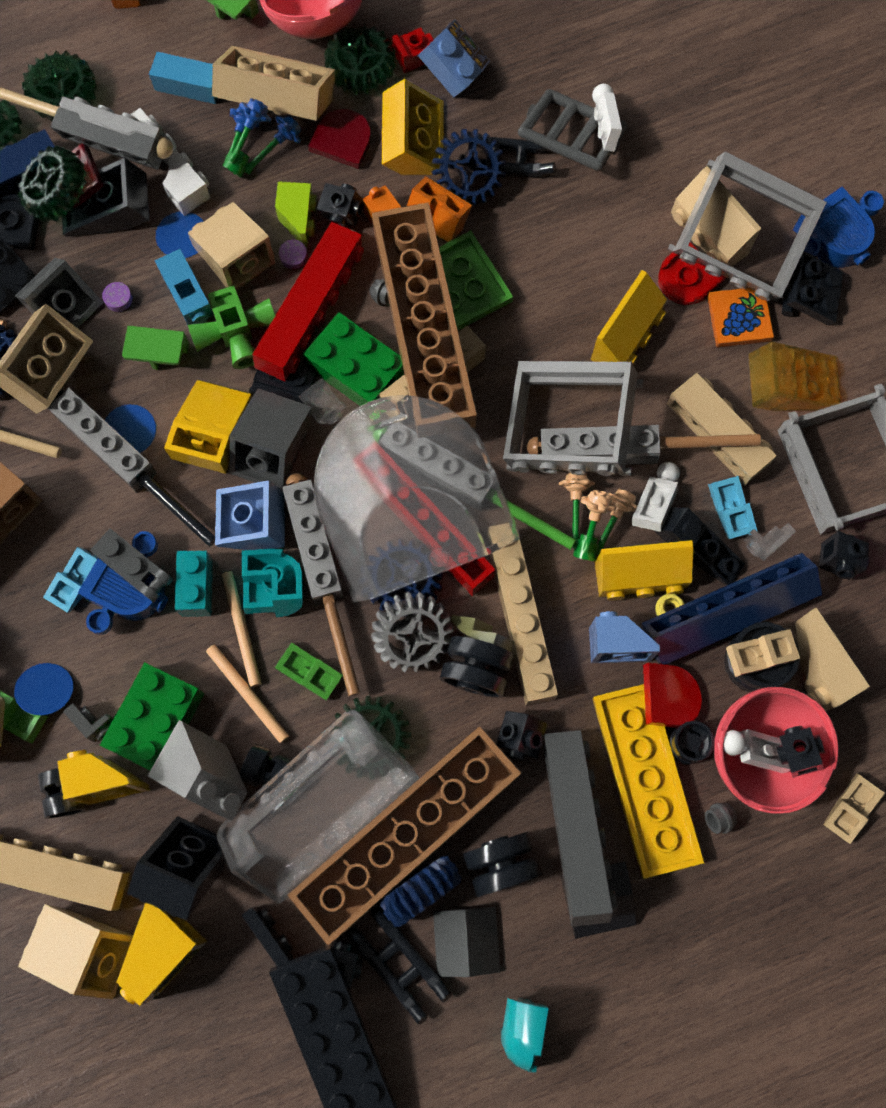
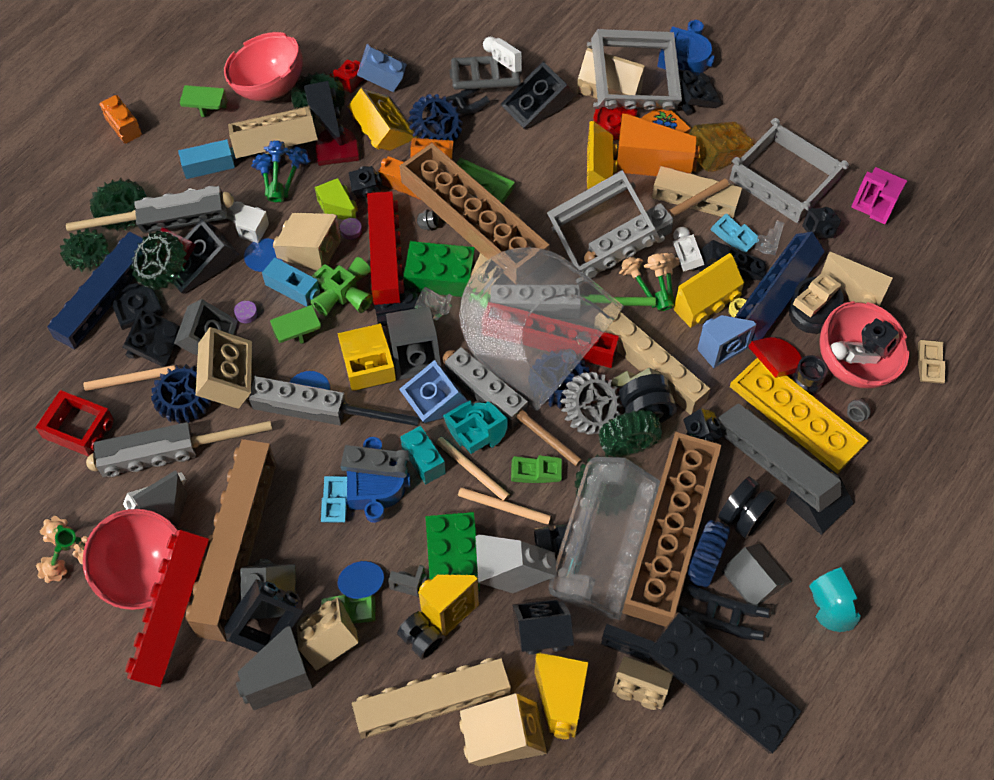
camera: 30 degrees left, 15 degrees down
(250, 991) = (642, 683): none -> tan slope
(348, 76) = (322, 107): none -> black slope
(431, 695) = (630, 433): none -> clear green gear
(615, 196) = (538, 97): none -> black slope
(701, 342) = (649, 146): none -> orange slope

